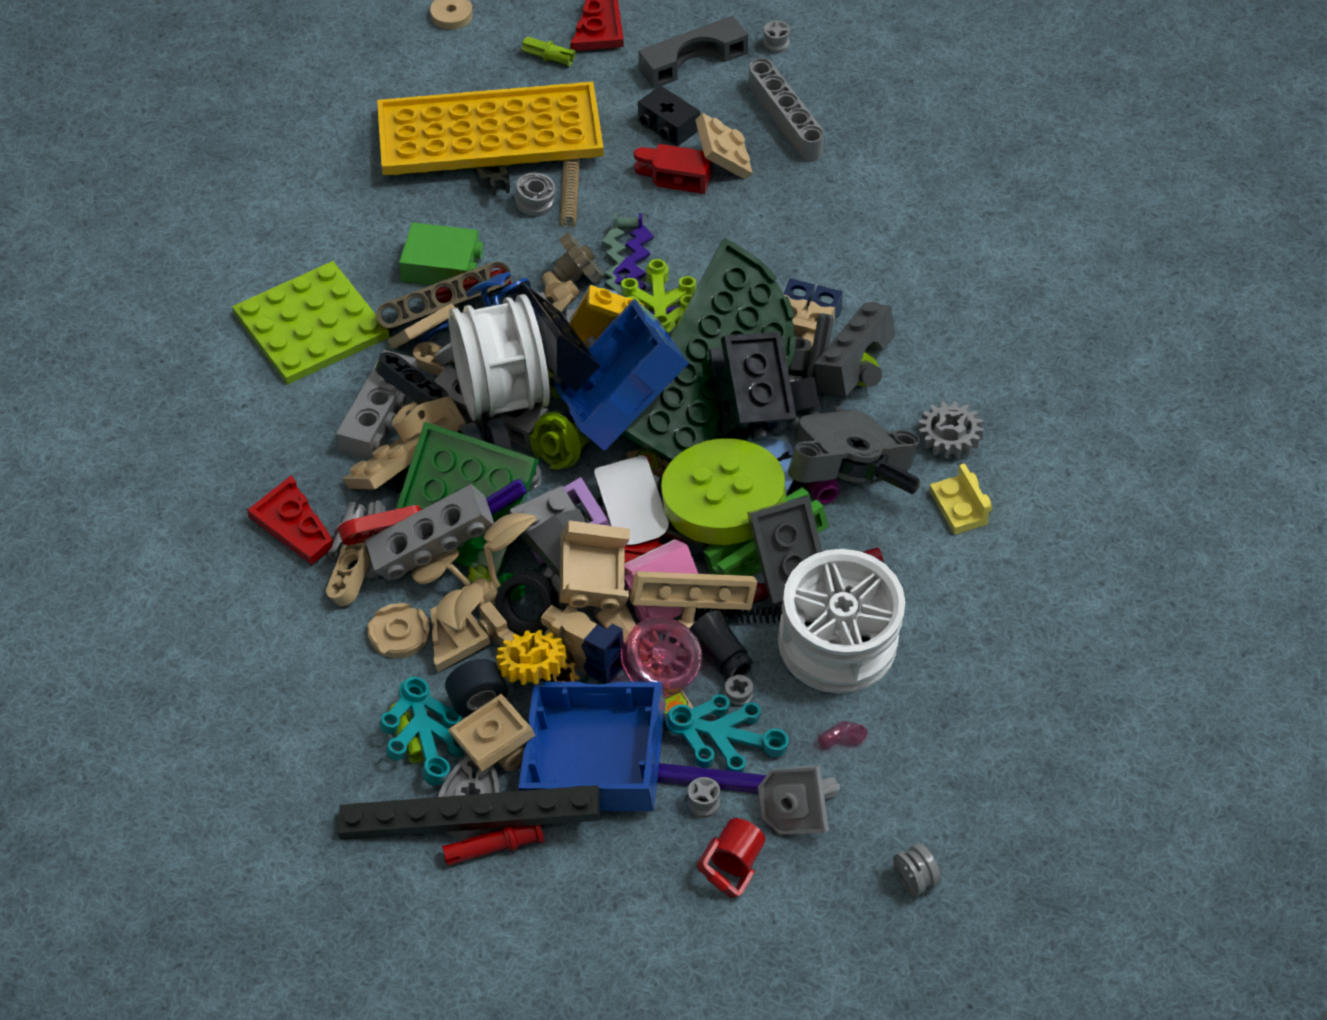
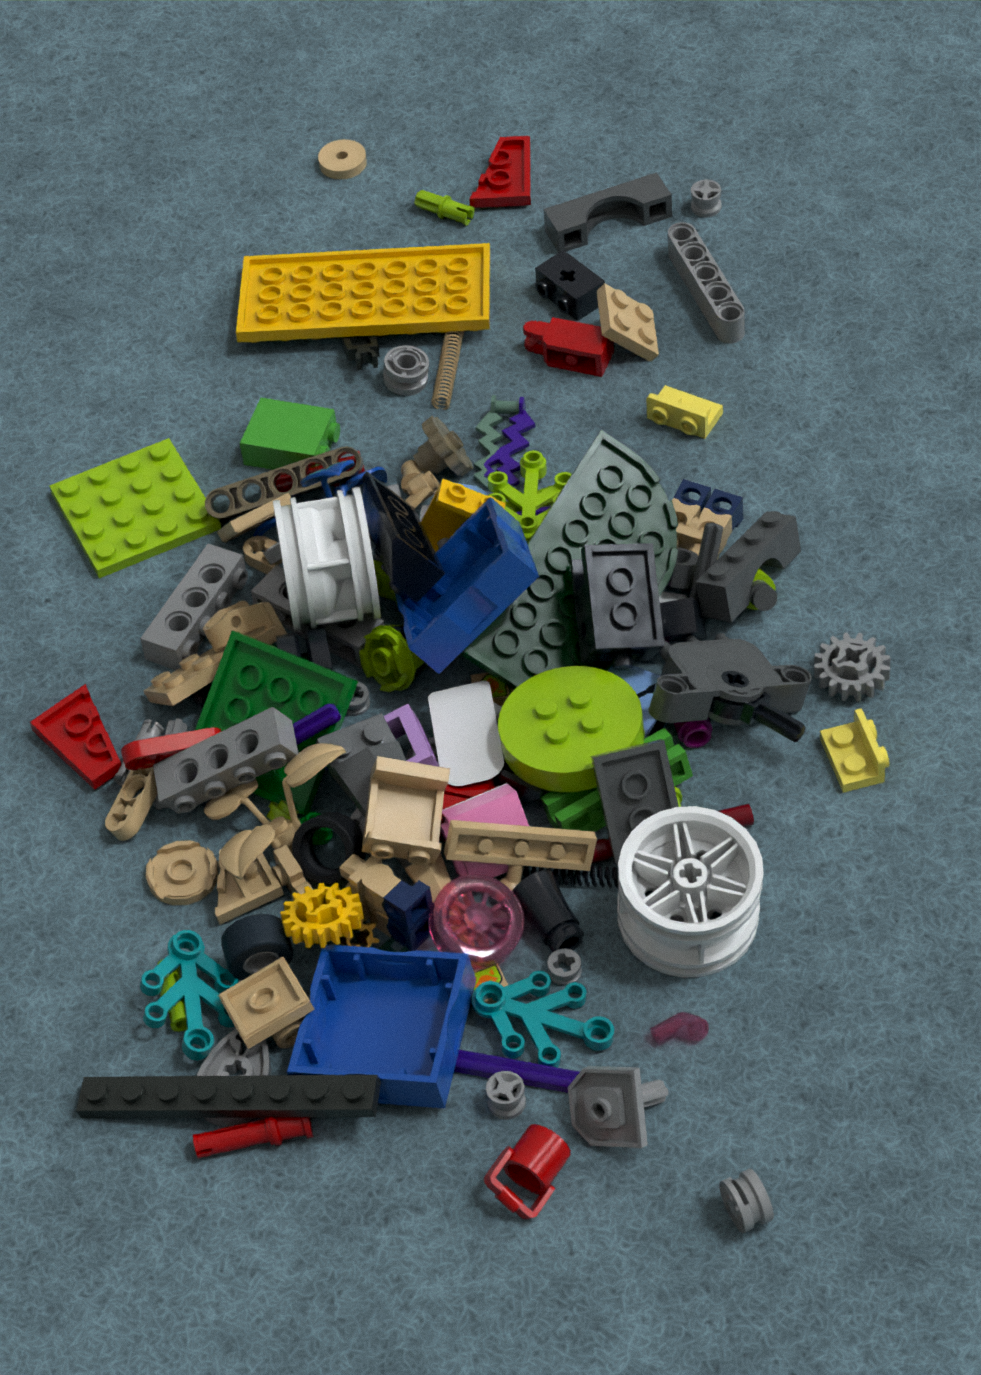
camera: 10 degrees right, 0 degrees up
(402, 374) = (218, 568): black beam -> none
(780, 221) = (683, 411): none -> light yellow bracket

